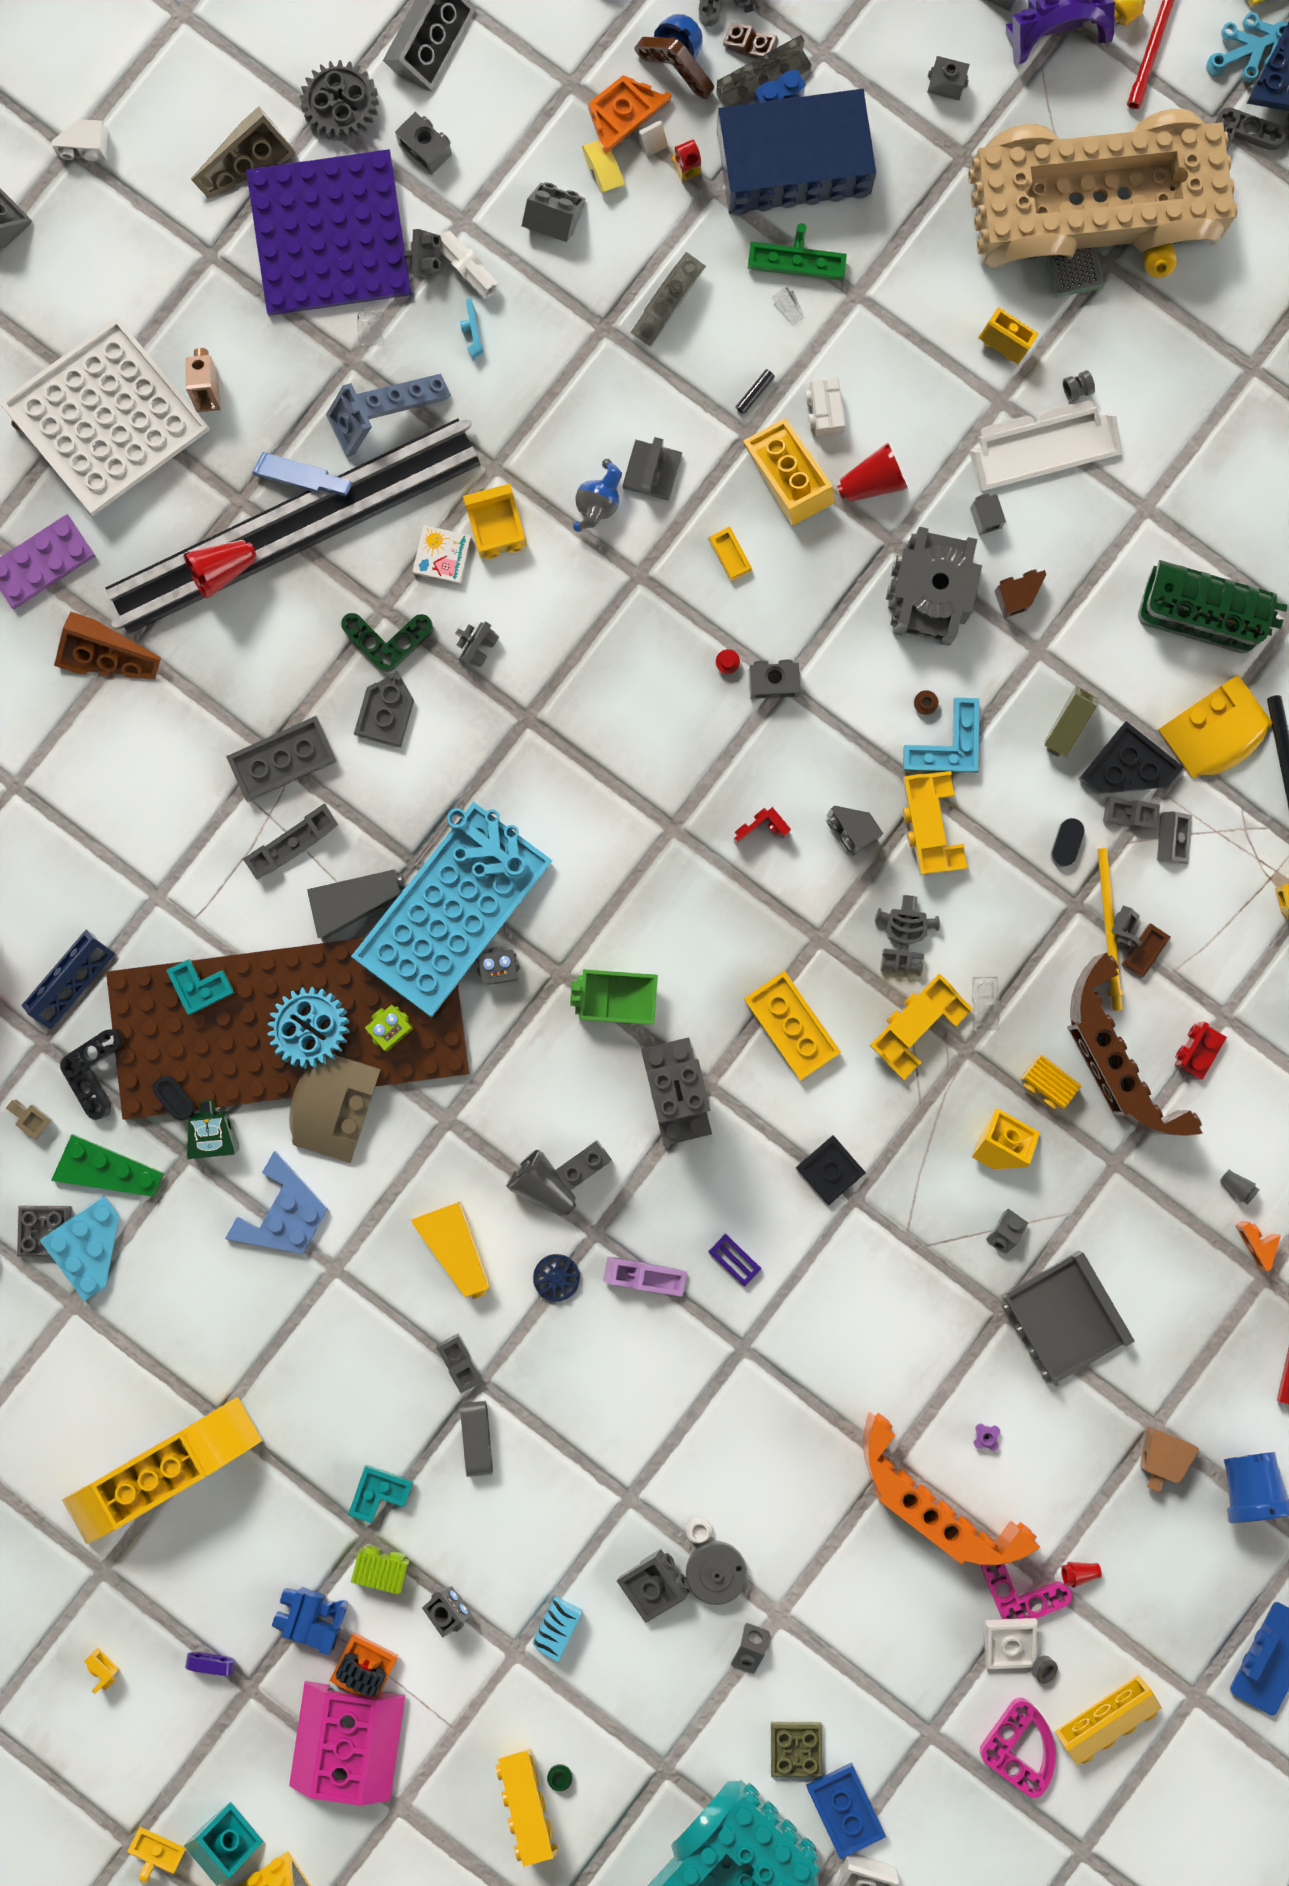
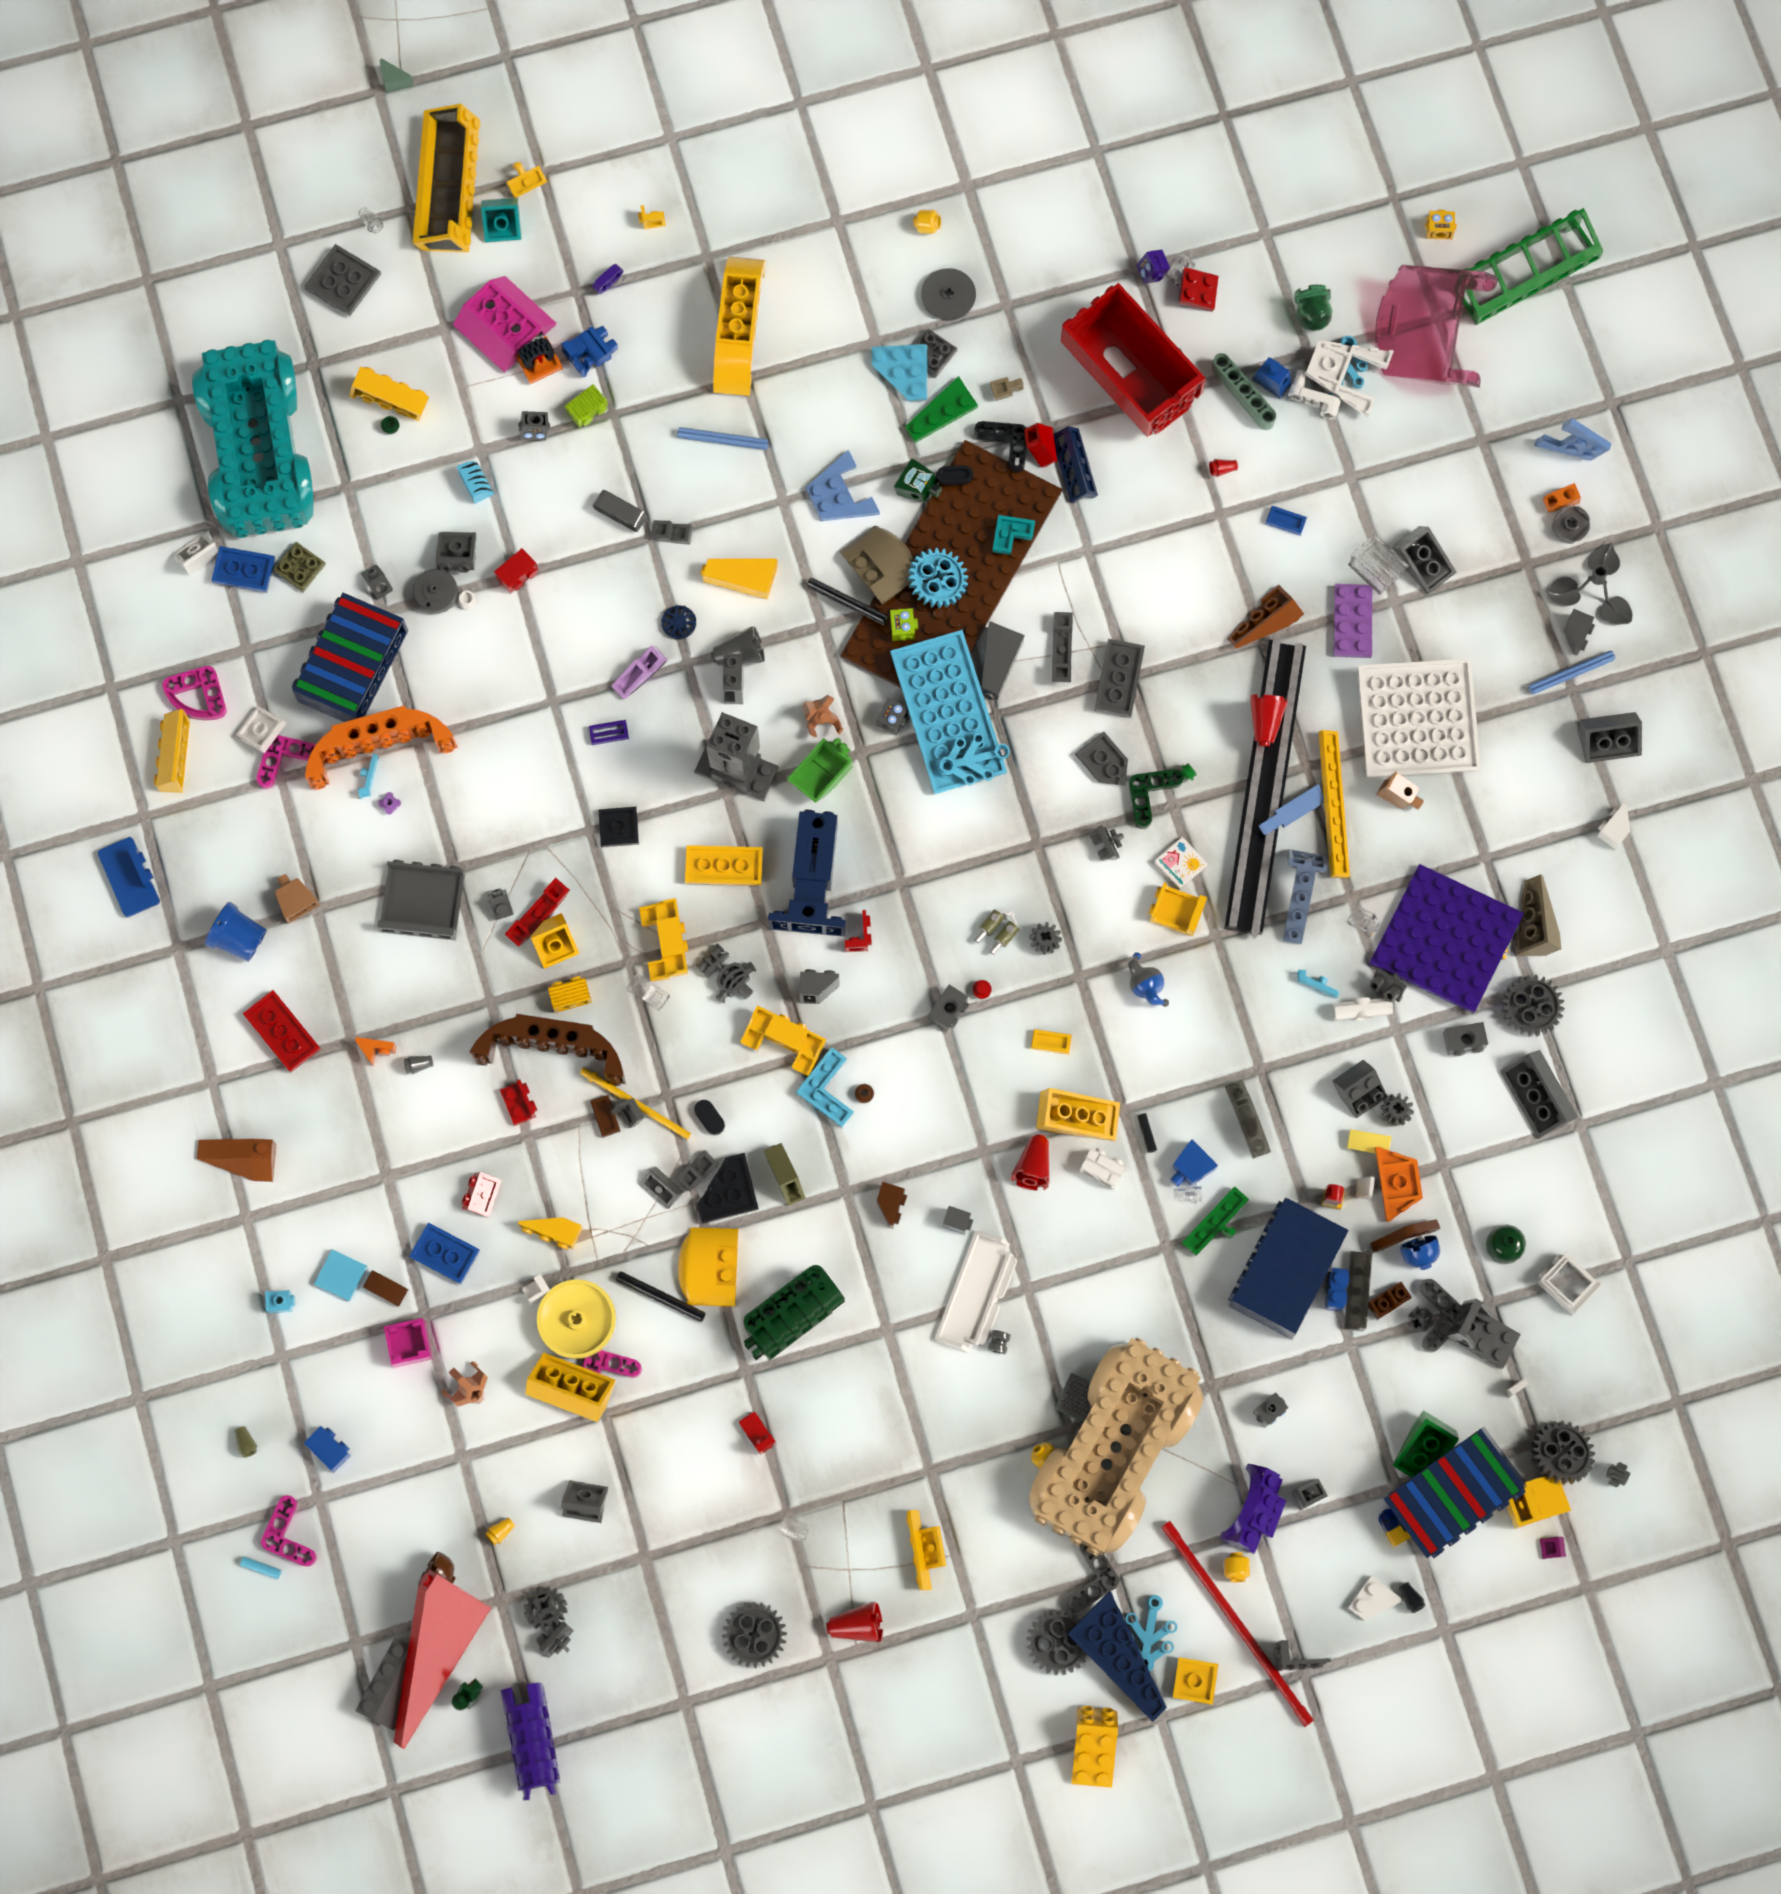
camera: 125 degrees right, 10 degrees down
(69, 1030) = (1041, 444): none -> red slope
(261, 443) = (1334, 804): none -> yellow tile
(309, 1388) = (723, 438): none -> medium blue axle
(336, 614) = (1188, 771): none -> green plate
(373, 1487) = (636, 435): teal plate -> none
(403, 1109) = (847, 601): none -> black axle
(549, 151) = (1404, 1113): none -> dark grey gear
(552, 1046) = (818, 713): none -> nougat piece
(619, 640) = (1042, 932): none -> dark grey gear
(628, 1500) = (516, 571): none -> red brick
(649, 701) = (991, 923): none -> olive piece
(652, 469) = (1141, 1031): dark grey bracket -> none
(740, 918) = (812, 878): none -> dark blue brick
(757, 321) = (1192, 1165): none -> blue torso
(866, 1606) = (350, 659): none -> dark blue brick
(920, 606) = (940, 1130): dark grey piece -> none
(970, 1484) = (369, 773): none -> medium azure piece
(989, 1183) = (540, 911): none -> red slope
(1008, 336) = (1065, 1317): yellow brick -> none
(1044, 1669) = (230, 738): dark grey tile -> none
(1079, 1573) = (268, 799): red cone -> none

